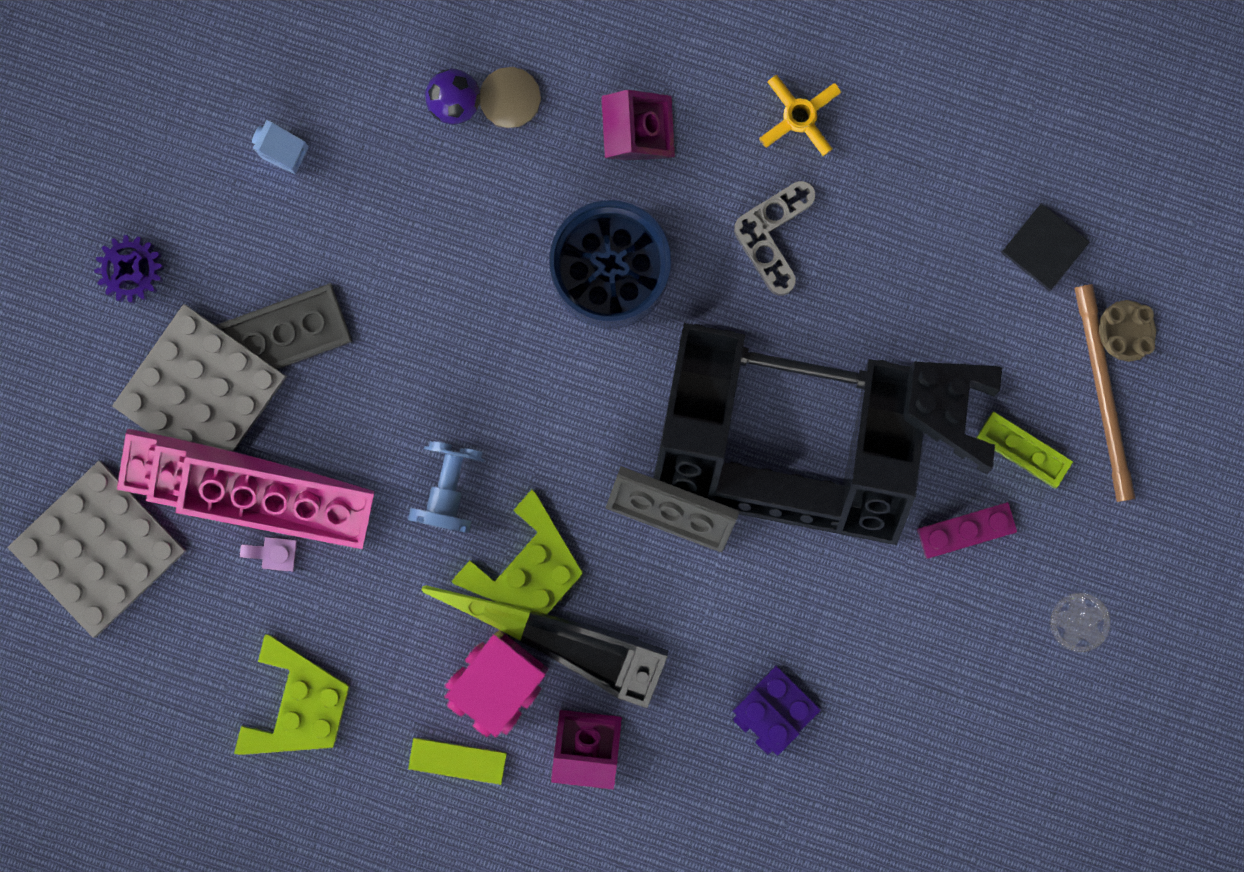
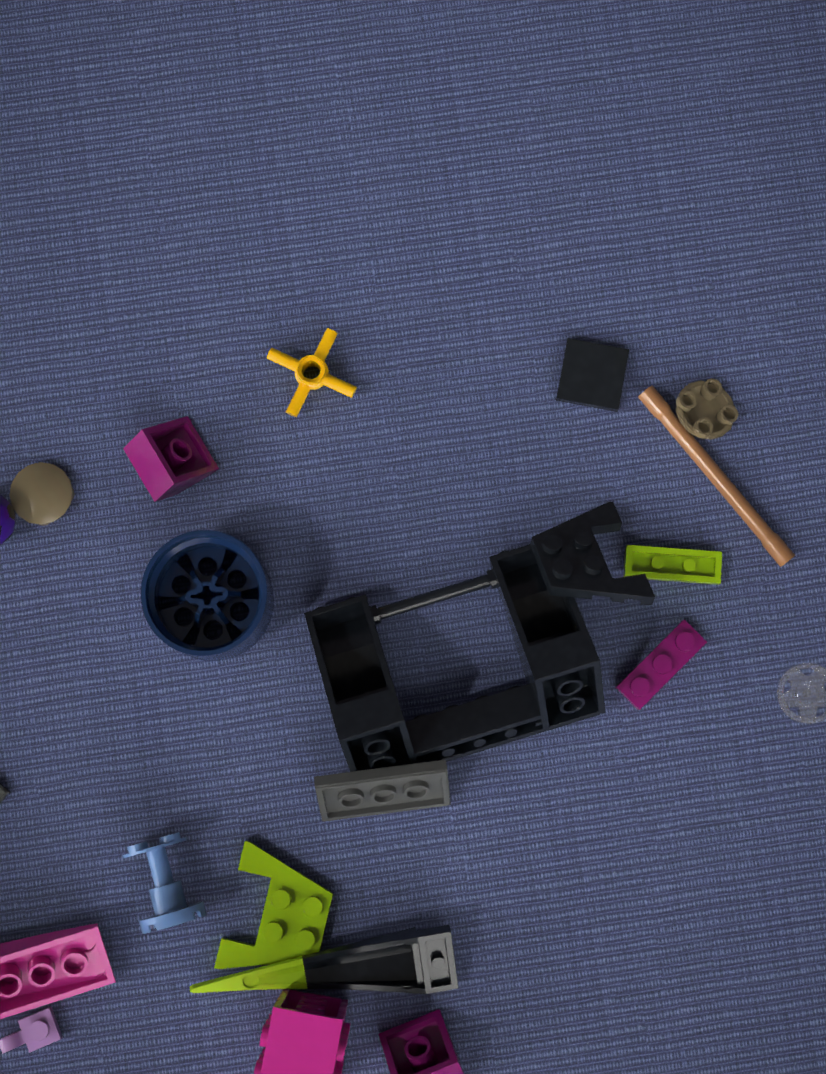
camera: 25 degrees left, 5 degrees down
(765, 226) = (333, 486): light grey beam -> none
(774, 711) = (577, 927): dark purple plate -> none

